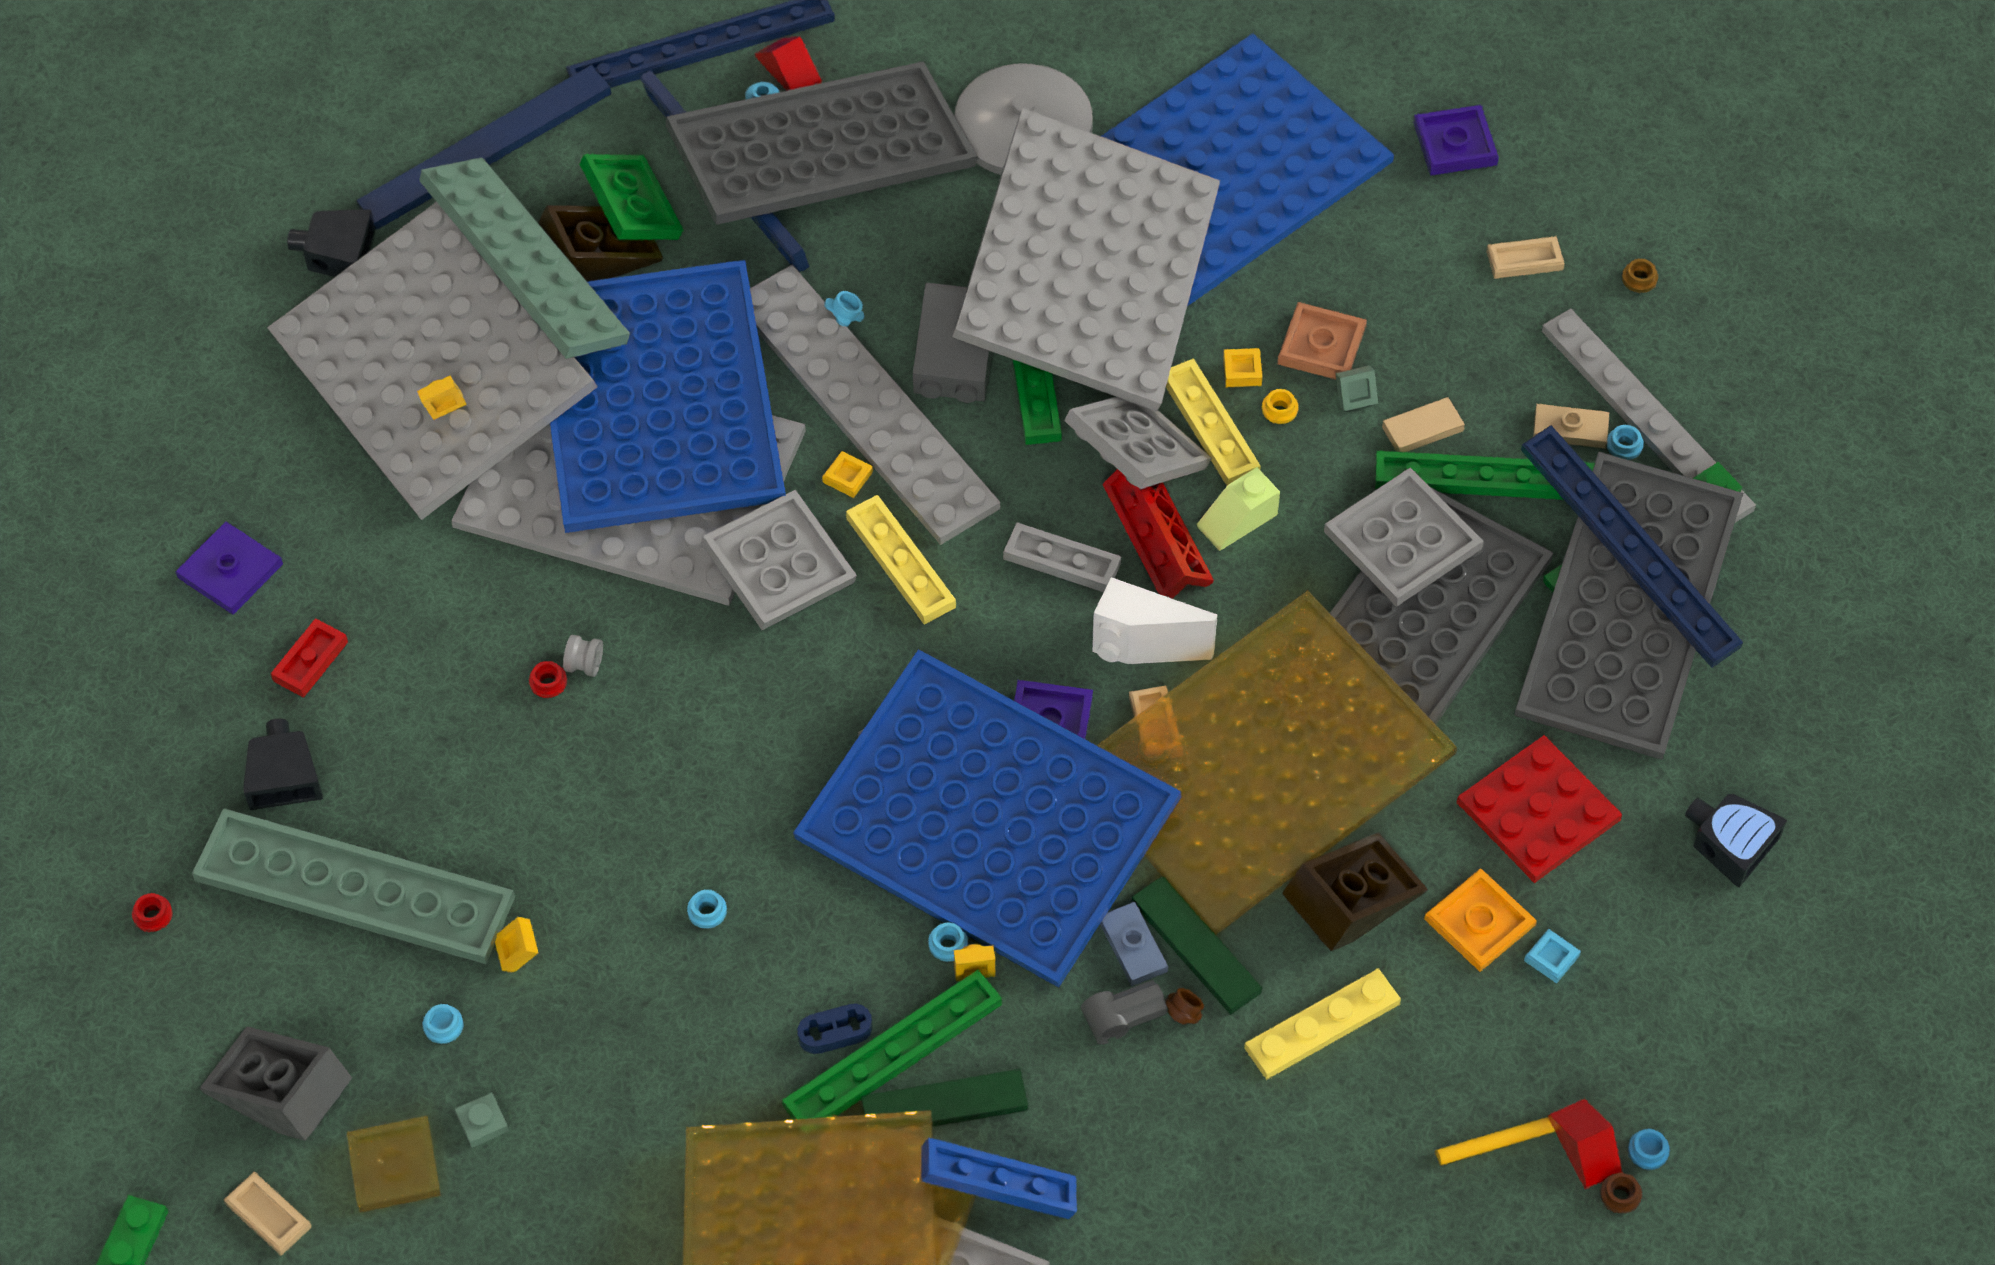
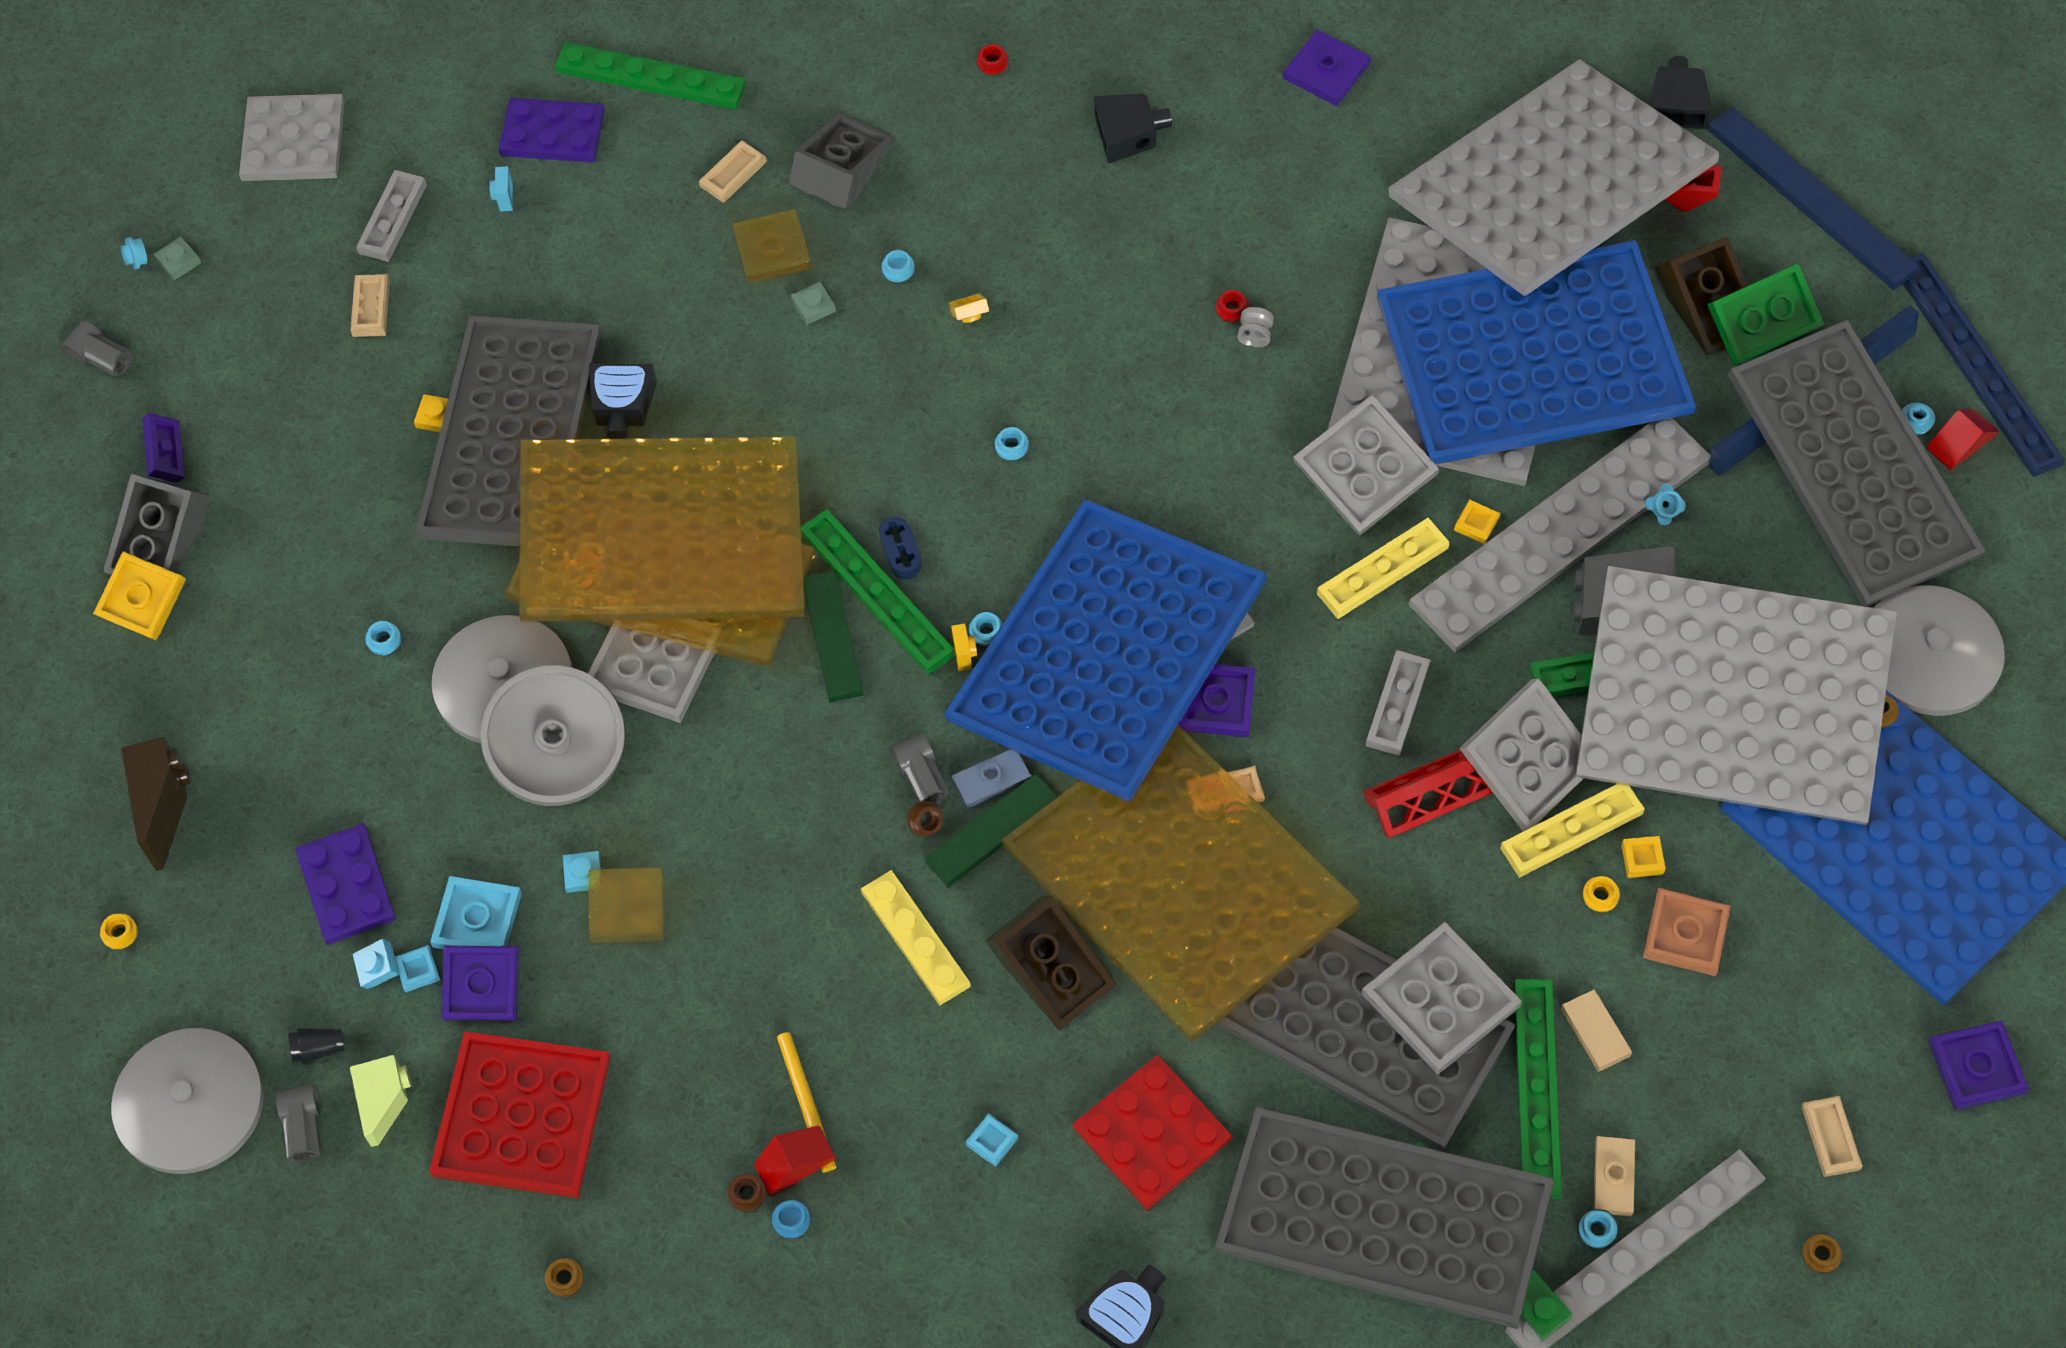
camera: 90 degrees right, 5 degrees up
(309, 657) = (1238, 132): red plate -> none
(354, 886) = (1020, 191): sand green plate -> none
(441, 397) = (1493, 176): yellow plate -> none
(524, 258) = (1662, 223): sand green plate -> none
(998, 1178) = (744, 667): blue plate -> none
(1149, 627) = (1315, 752): white slope -> none
(1240, 509) = (1468, 856): yellowish green slope -> none
(1357, 388) = (1629, 962): sand green plate -> none
(1480, 920) = (1028, 1076): light orange tile -> none
(1632, 546) = (1442, 1209): dark blue tile -> none

